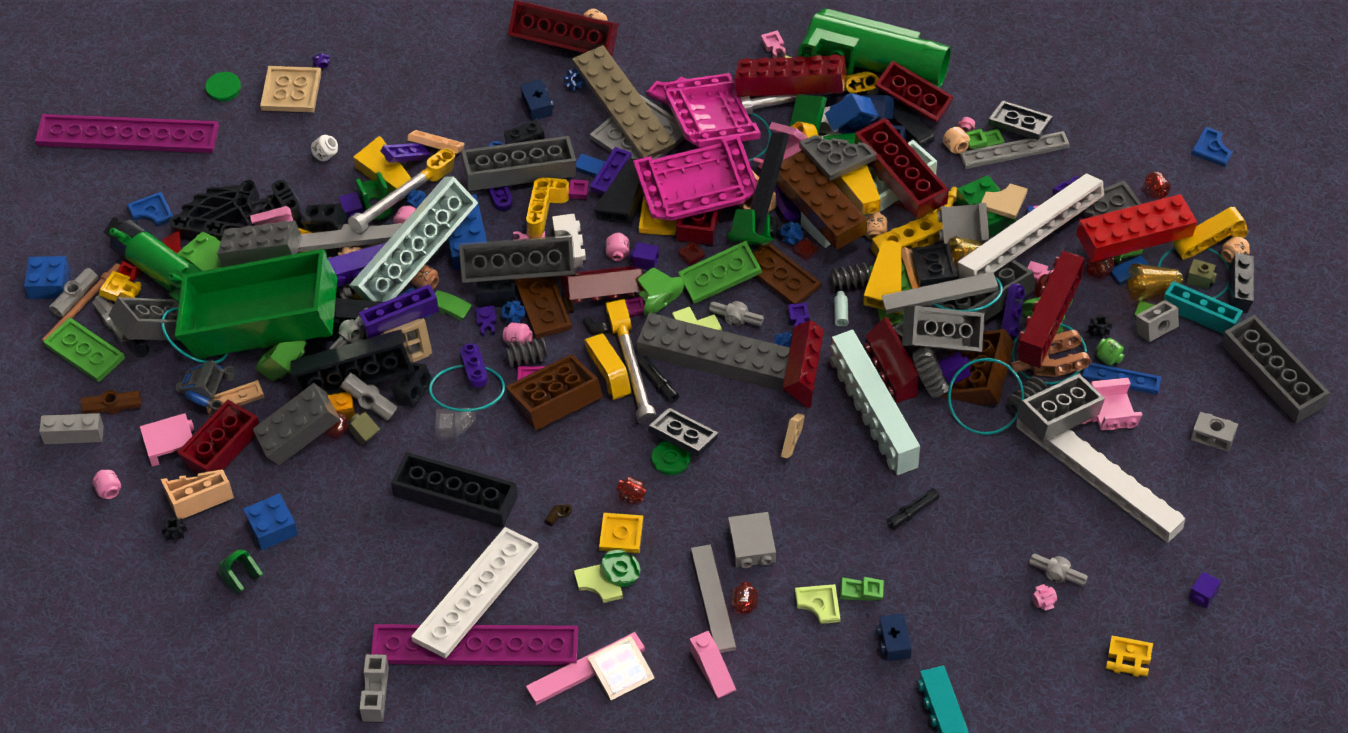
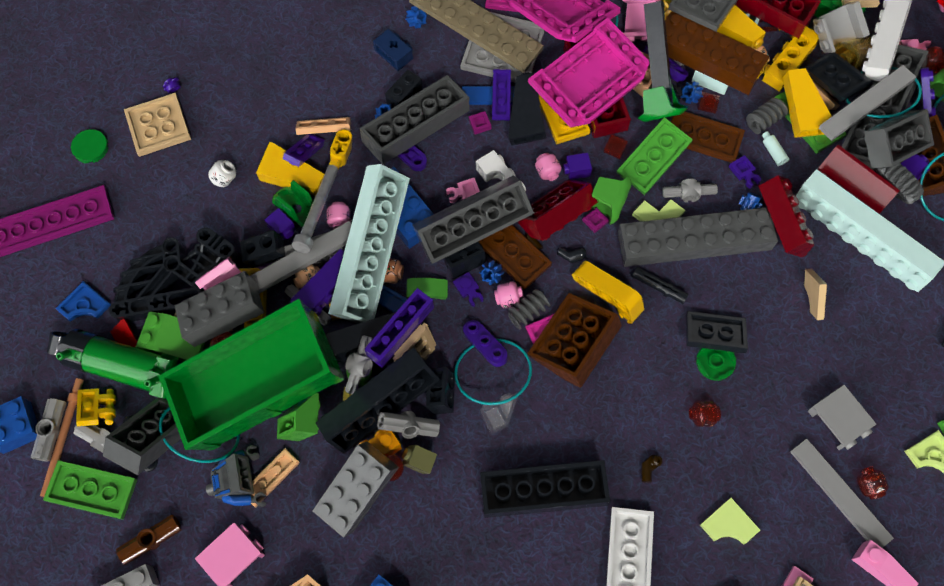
camera: 25 degrees left, 15 degrees up
(129, 270) = (92, 381): red slope -> none
(219, 439) = (283, 537): dark red slope -> none
(415, 198) = (339, 193): blue gear -> none
(543, 193) = (453, 138): yellow beam -> none
(620, 568) = (742, 503): tile -> none
(621, 324) = (594, 242): flat silver piece -> none
(621, 532) = (720, 463): yellow plate -> none

